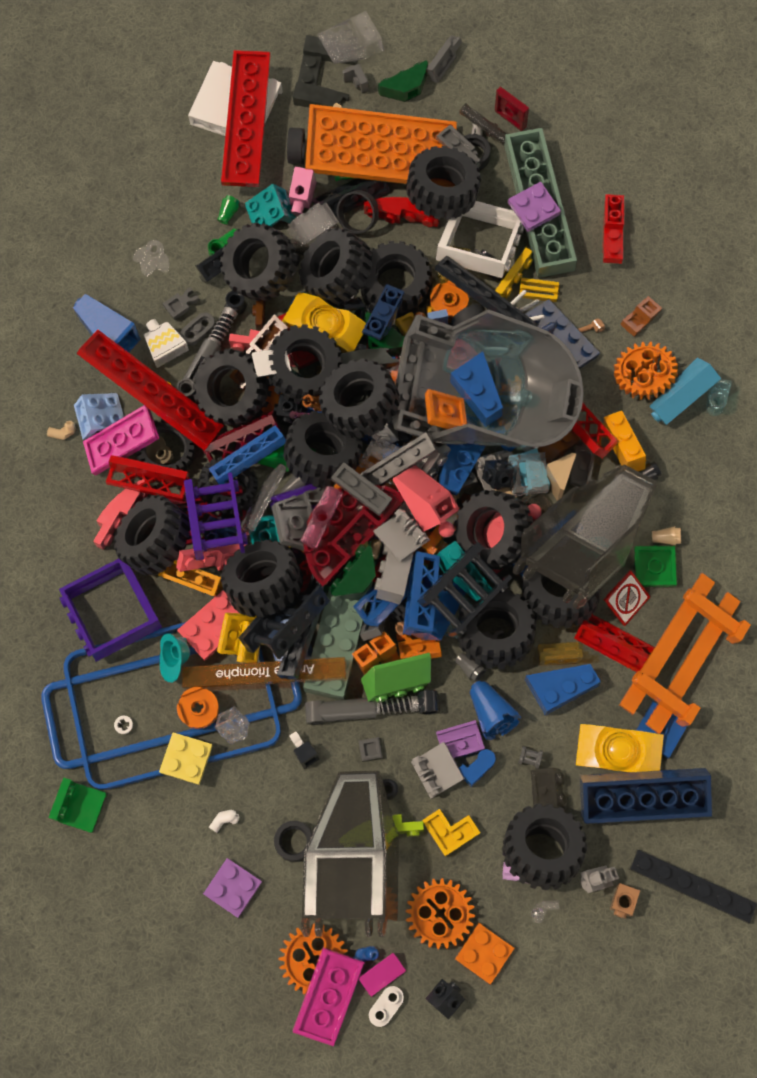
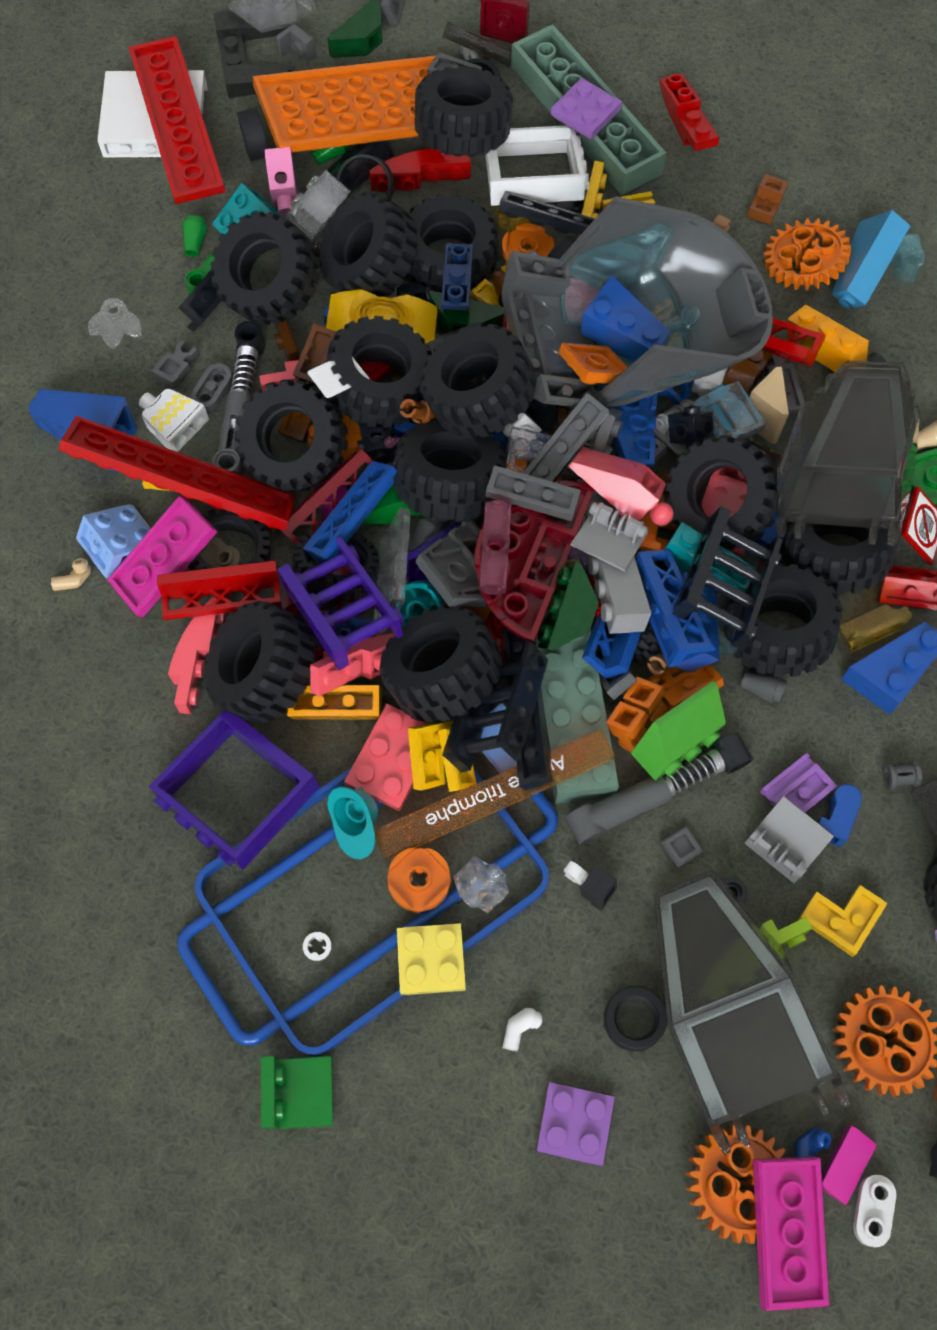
camera: 25 degrees left, 5 degrees down
(492, 710) = (824, 730): blue cone -> none

